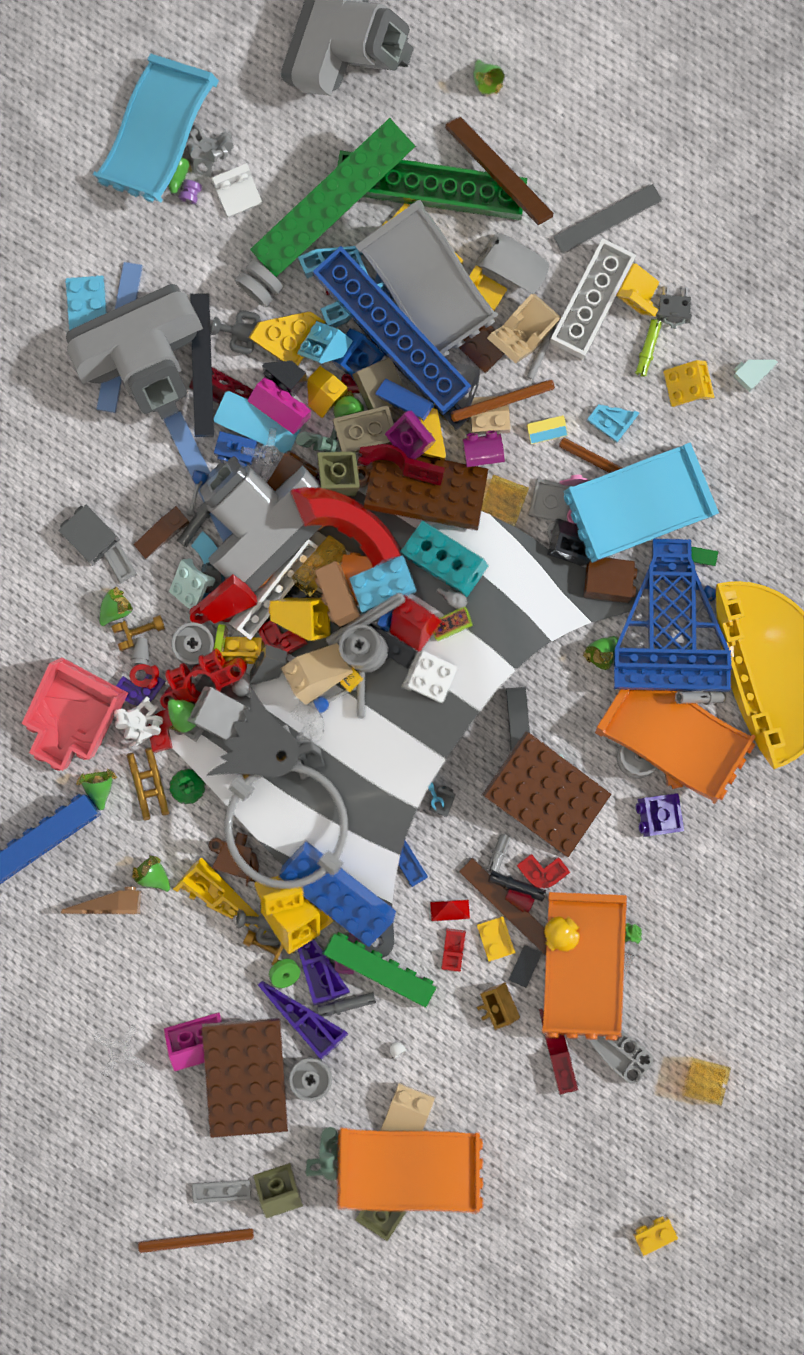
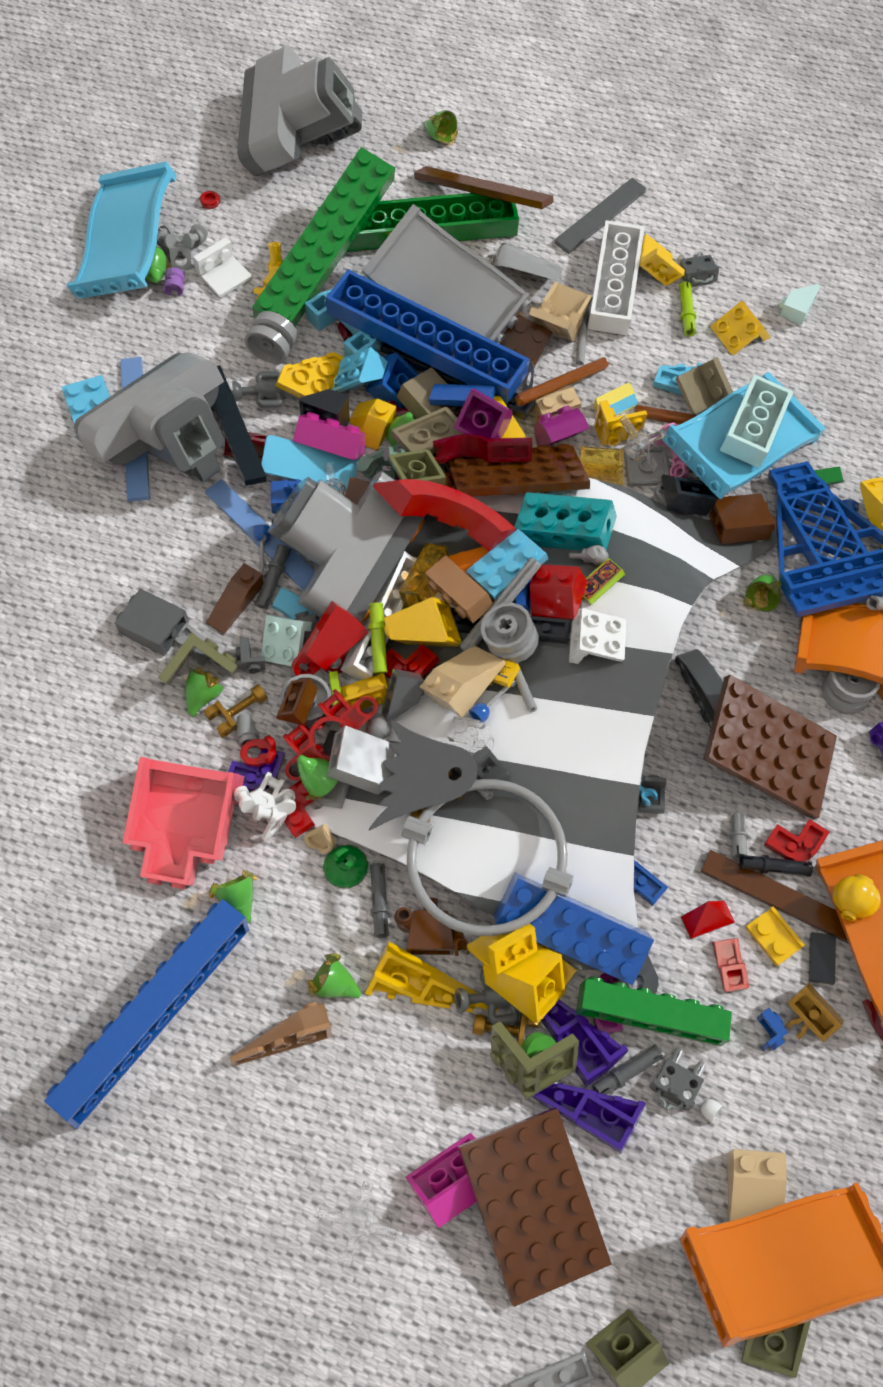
camera: 20 degrees left, 20 degrees down
(124, 577) = (186, 650): none -> olive bracket
(156, 586) = (243, 653): none -> dark grey bracket
(157, 791) = (299, 862): pearl gold piece -> none
(174, 760) = (321, 839): none -> tan tile
(184, 648) = (297, 701): none -> reddish brown slope
(204, 821) = (379, 901): none -> dark grey pin
(247, 101) = (210, 199): none -> red tile
(263, 611) = (378, 638): none -> lime pin
(277, 989) = (533, 1073): none -> olive bracket
(286, 203) = (273, 265): none -> yellow arm
(310, 1090) = (633, 1176): light grey wheel -> none
(327, 1168) = (683, 1286): sand green piece -> none
(378, 1026) = (676, 1086): none -> dark grey piece
(466, 1003) = (773, 1025): none -> blue bracket
(520, 900) = (787, 879): dark red cone -> none
(530, 464) = (610, 429): none -> yellow bracket
(544, 486) = (640, 443): none -> clear bar
(625, 440) = (704, 385): none -> dark tan bracket
(649, 500) = (756, 421): none -> light aqua brick

